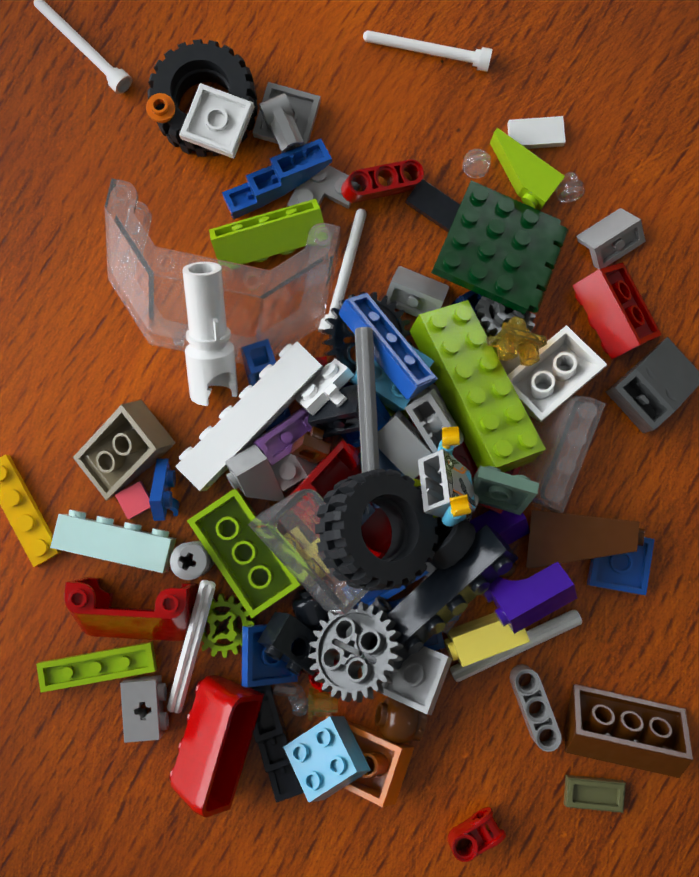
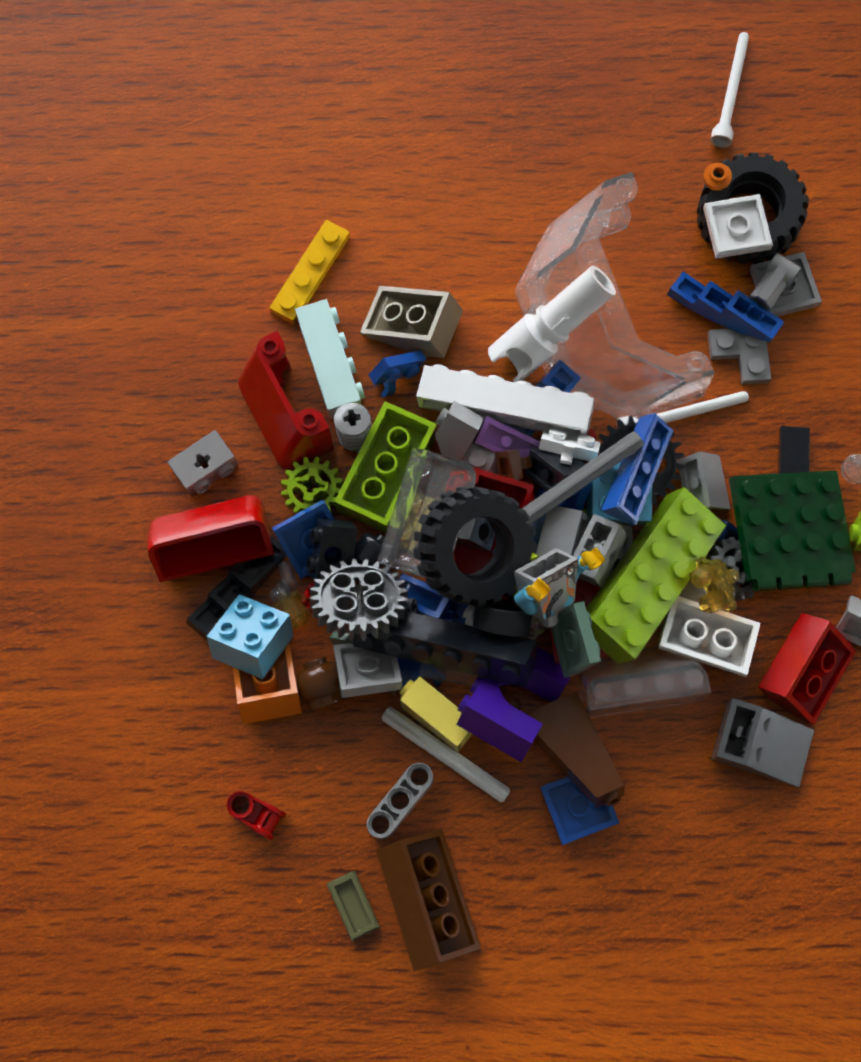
camera: 65 degrees right, 10 degrees down
(96, 667) = (216, 406): lime plate -> none
(134, 500) = (372, 353): coral tile -> none
(191, 646) = (279, 468): white axle -> none
(266, 234) = (668, 324): lime brick -> none
(391, 172) = (795, 395): red beam -> none

